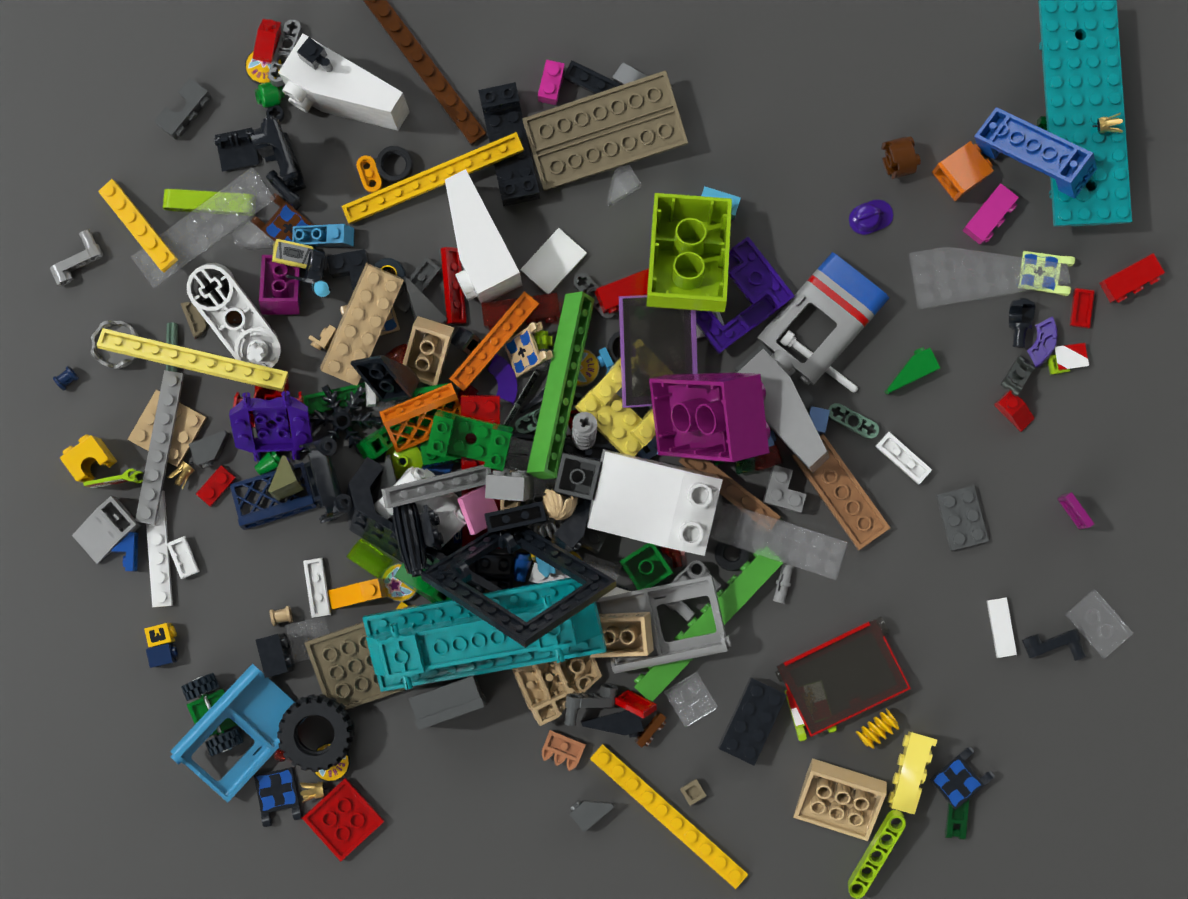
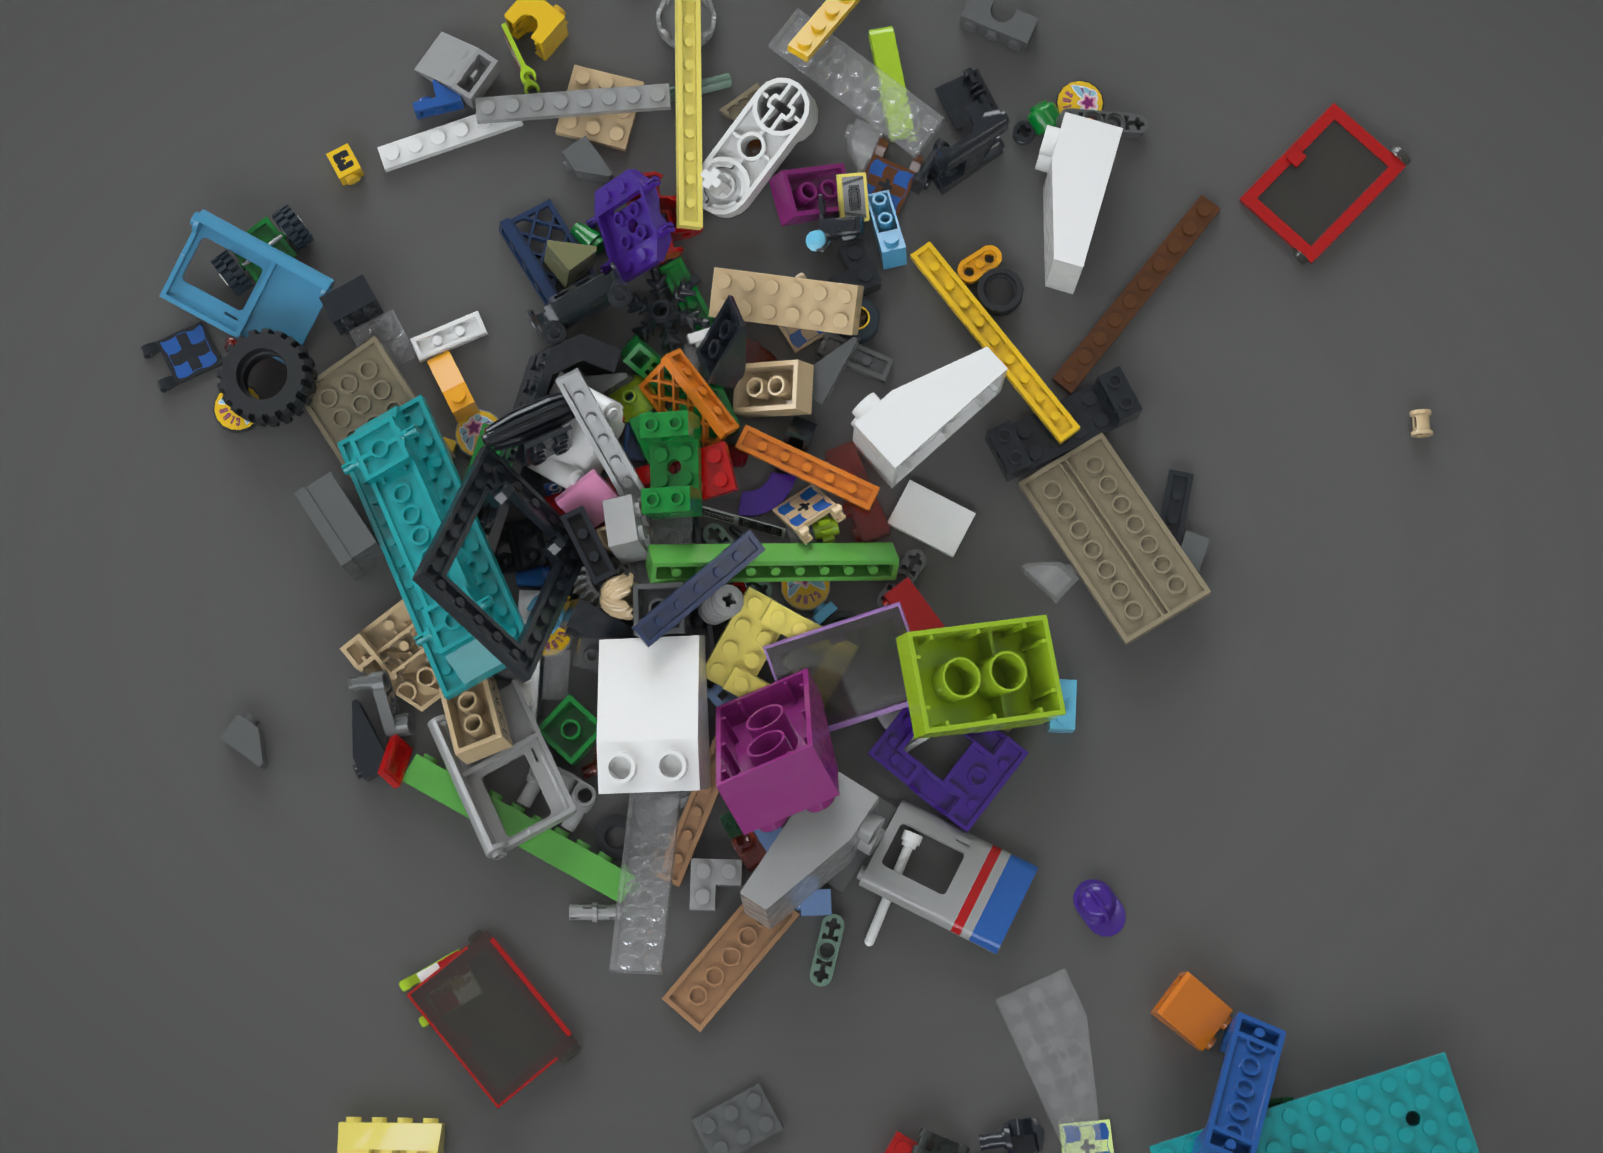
camera: 75 degrees right, 5 degrees down
(161, 655) = (321, 173): dark blue brick -> none
(183, 557) = (446, 167): white plate -> none
(186, 470) = (553, 144): pearl gold piece -> none
(216, 486) = (544, 183): red plate -> none
(267, 40) = (1110, 96): red slope -> none
(281, 616) = (403, 301): tan bush -> none
(314, 55) = (1097, 147): black brick -> none
(316, 792) = (198, 401): pearl gold piece -> none
(326, 337) = (760, 265): tan bracket -> none
(343, 819) = (171, 441): red plate -> none
(369, 558) = (499, 388): clear neon green brick -> none
(453, 293) = (840, 410): red plate -> none
(551, 82) = (1157, 456): dark pink brick -> none
(563, 748) = (320, 686): nougat plate -> none
(571, 442) = (698, 588): none -> dark blue plate
(656, 723) = (359, 786): reddish brown plate -> none
(669, 816) = (265, 842): yellow plate -> none
(690, 699) = (418, 831): clear slope -> none
(693, 792) = (302, 863): dark tan plate -> none
(752, 721) = (408, 915): black brick -> none
(840, 799) = (336, 1054): tan slope -> none
(876, 863) = (264, 1113): lime beam -> none
(878, 729) = (436, 1081): yellow piece -> none
(900, 157) = (1185, 923): reddish brown brick -> none
(903, 458) = (795, 1027): white plate -> none
(916, 367) = (916, 1014): green slope -> none
(991, 214) = (1145, 1063): dark pink brick -> none

